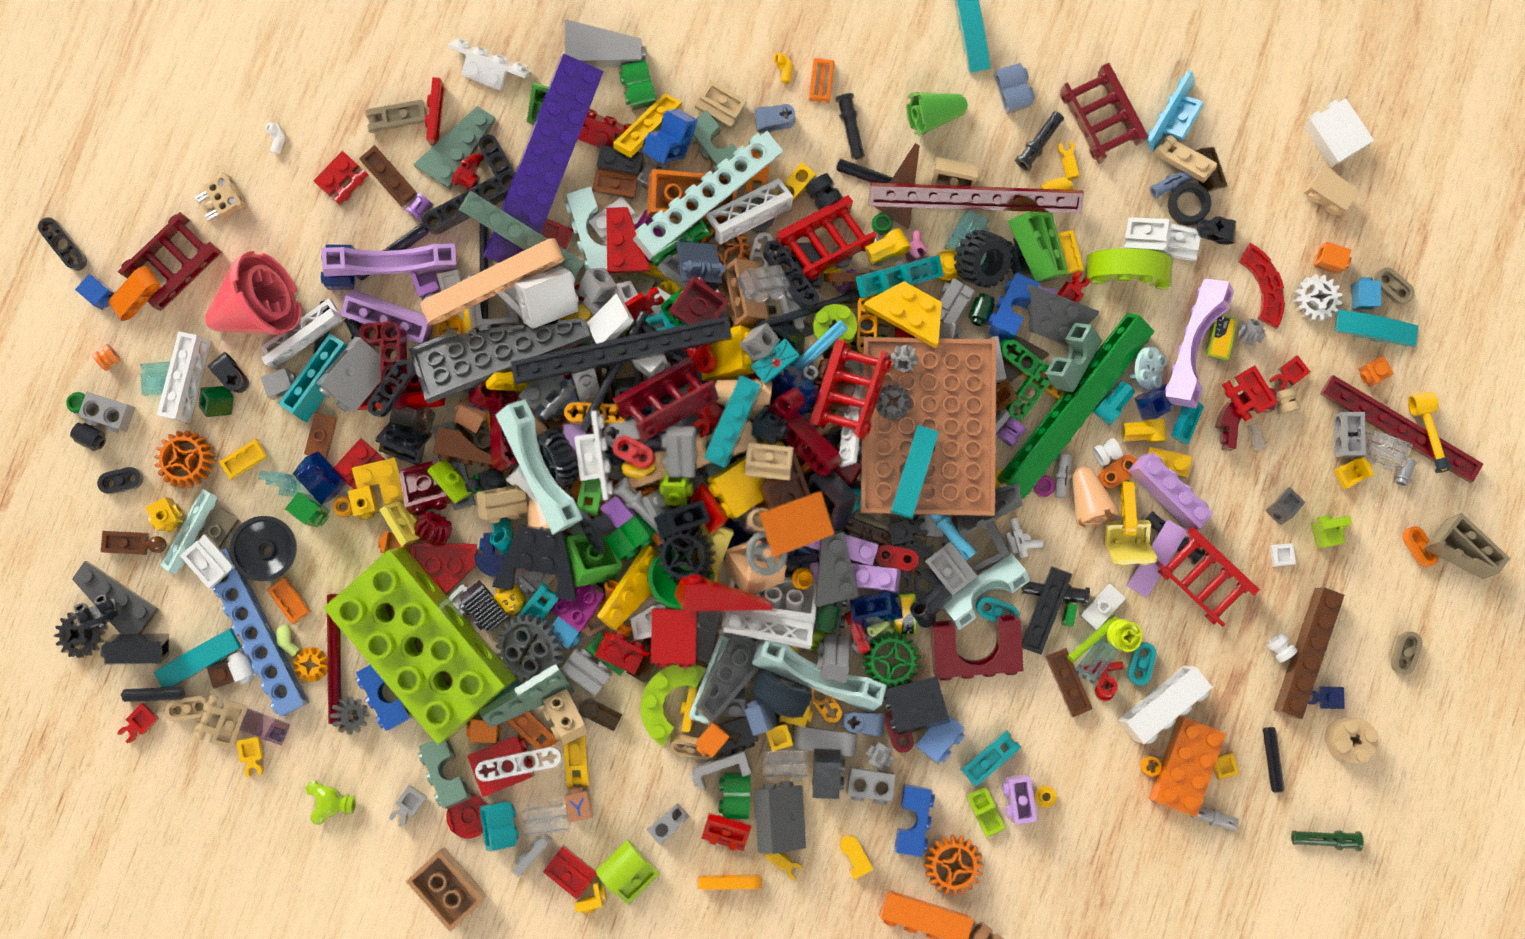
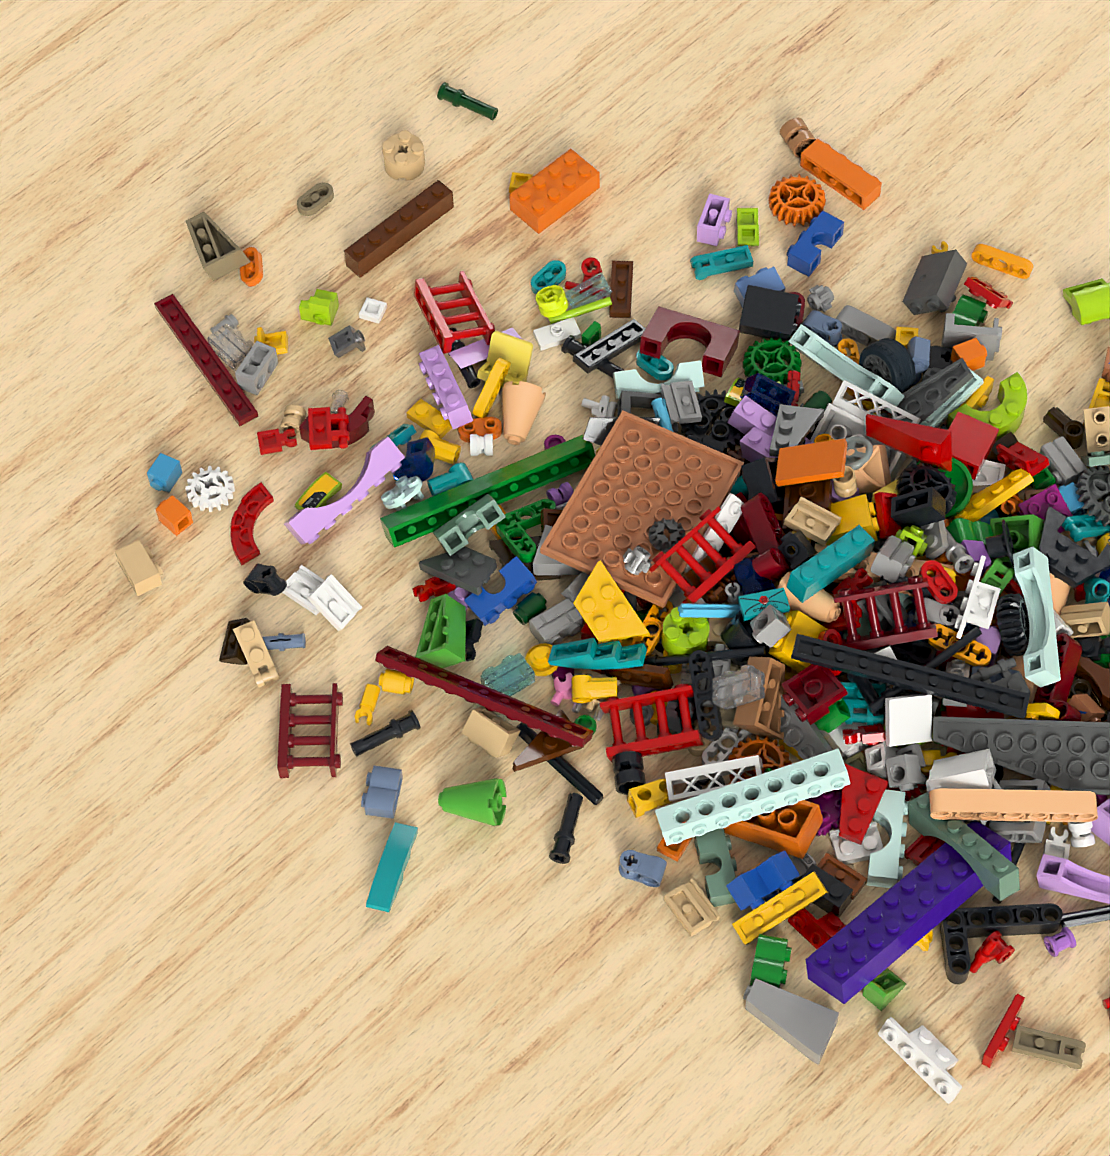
camera: 150 degrees left, 25 degrees down
(388, 176) = (1081, 988): reddish brown plate -> none
(426, 283) = (1083, 856): medium lavender panel -> none
(449, 152) = (994, 988): sand green wing -> none
(668, 823) = (1039, 322): light grey leg -> none
(686, 746) = (993, 371): tan plate -> none
(699, 261) = (790, 743): sand blue hinge -> none
(785, 66) = (603, 917): yellow arm -> none
(785, 763) = (905, 317): clear brick -> none
(819, 97) = (563, 904): orange tile -> none
(827, 773) = (875, 299): black brick -> none
(834, 657) = (825, 375): light grey brick -> none
(851, 847) = (878, 233): yellow leg -> none
(871, 778) = (841, 280): light grey brick -> none
(896, 558) = (725, 431): red plate -> none
(914, 471) = (678, 466): teal slope -> none
(925, 609) = (712, 382): black piece -> none
(996, 261) = (506, 640): black tyre -> none
(1038, 796) = (689, 223): yellow plate -> none
(1063, 476) = (533, 442): light grey pin -> none
(1071, 251) = (415, 623): yellow plate -> none
(1130, 264) = (373, 577): lime brick -> none
(1157, 769) = (584, 200): light orange bush -> none
(1165, 704) = (548, 236): white brick -> none
(1178, 114) = (236, 695): medium azure bracket -> none
(1199, 191) = (269, 603): black tyre -> none
(1215, 818) = (551, 150): light grey pin -> none
(1251, 331) = (289, 485): light grey gear -> none
(1273, 759) = (476, 171): black axle -> none
(1281, 647) = (419, 242): white wheel -> none
(1329, 697) = (399, 194): clear blue plate -> none
(1338, 132) = (96, 617): white brick -> none
(1375, 371) = (197, 413): orange bracket -> none
(1376, 328) = (174, 442): teal slope -> none
(1394, 284) = (135, 472): dark tan plate -> none
(1423, 405) = (174, 367): yellow piece -> none

